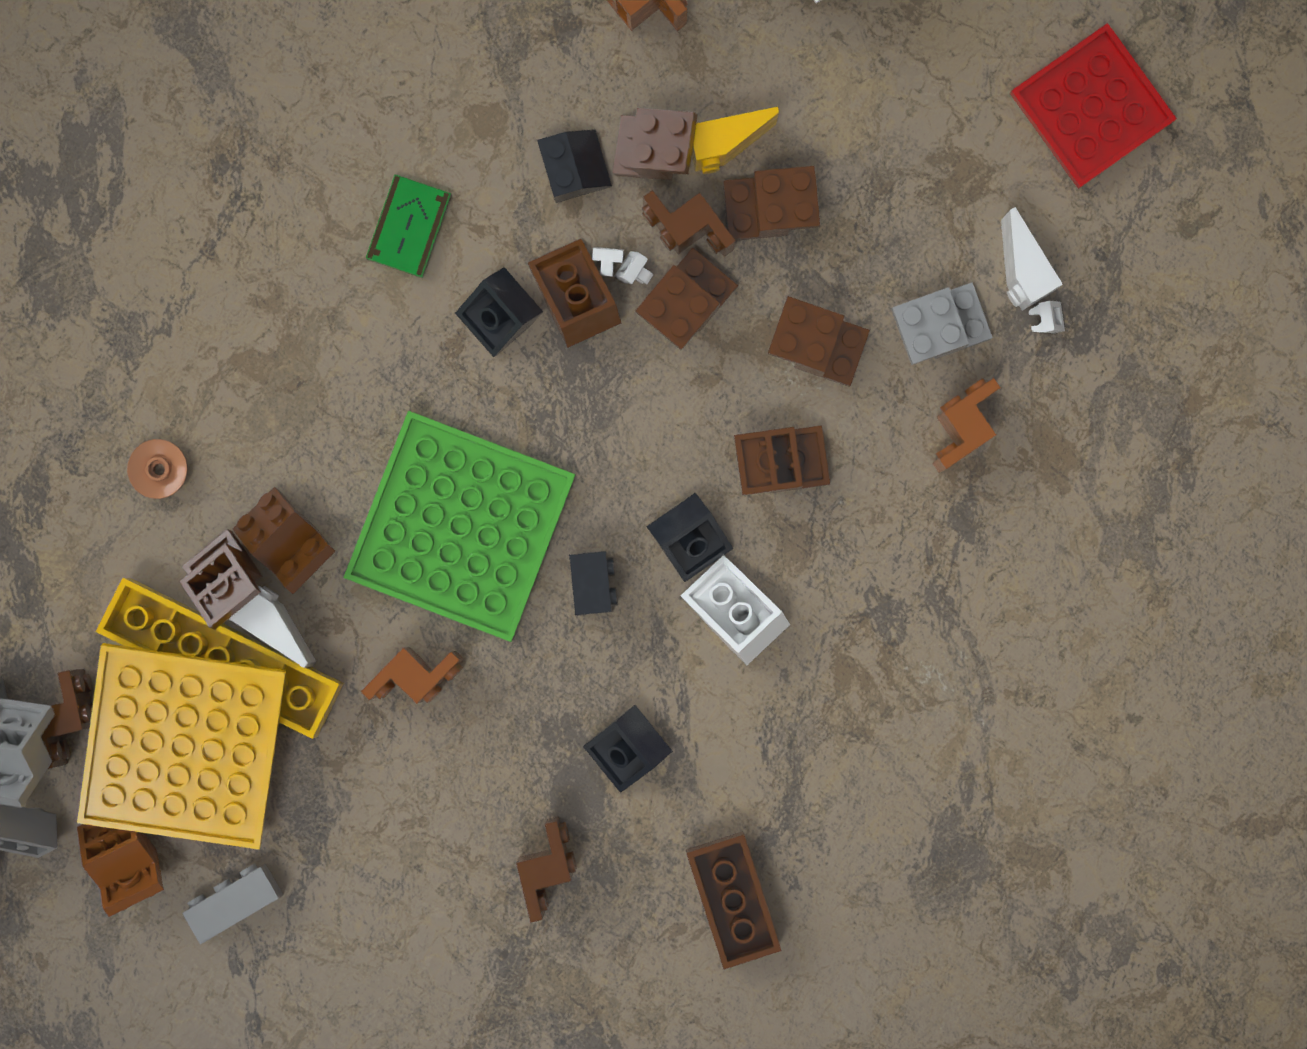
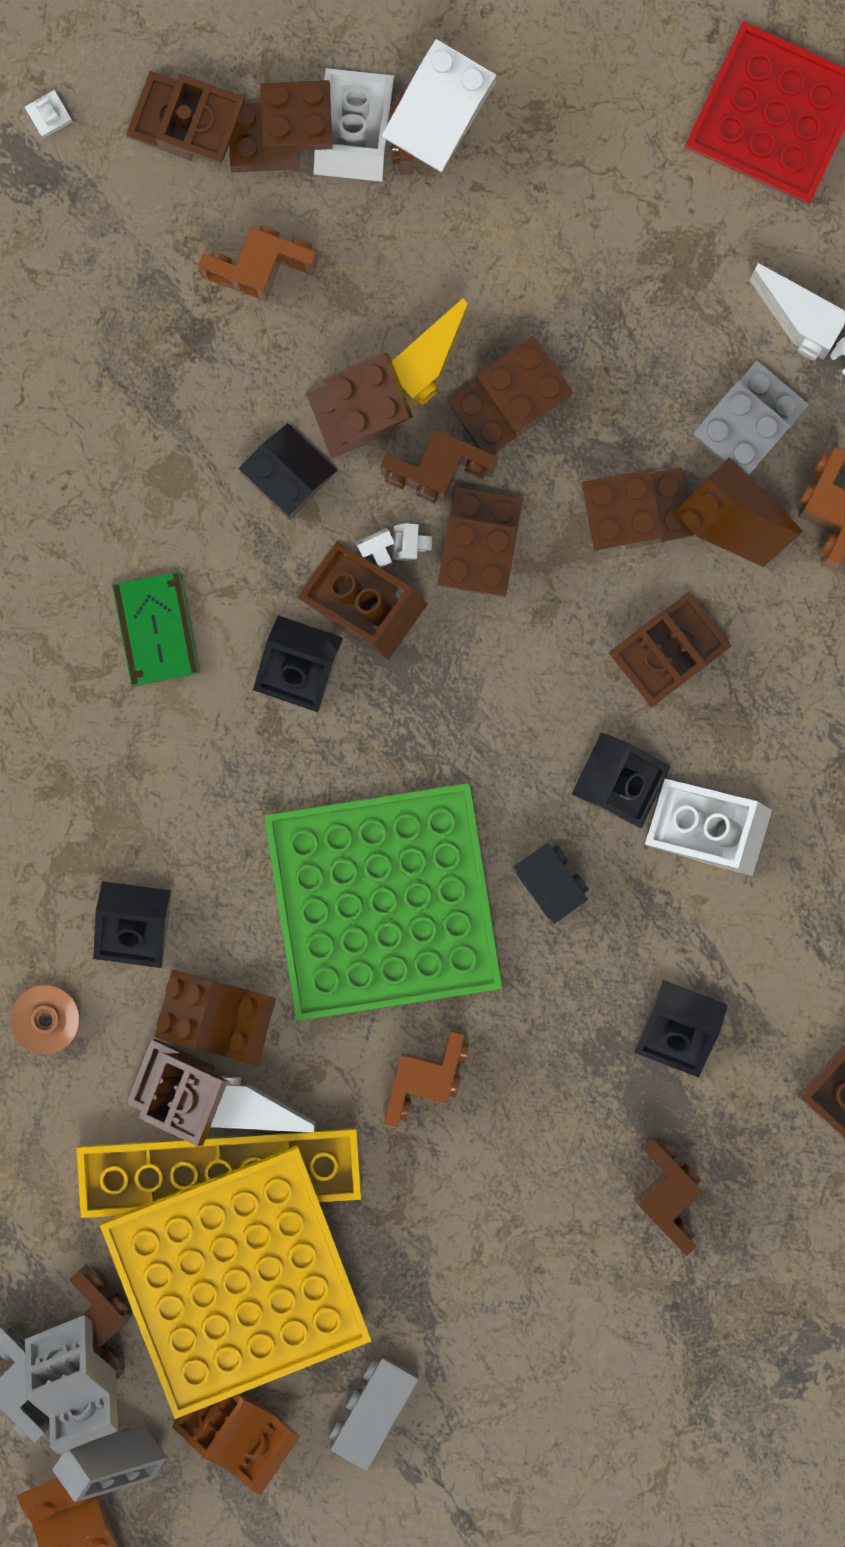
camera: 30 degrees left, 0 degrees up
(262, 434) = (131, 924): none -> black slope
(890, 389) = (737, 515): none -> reddish brown slope

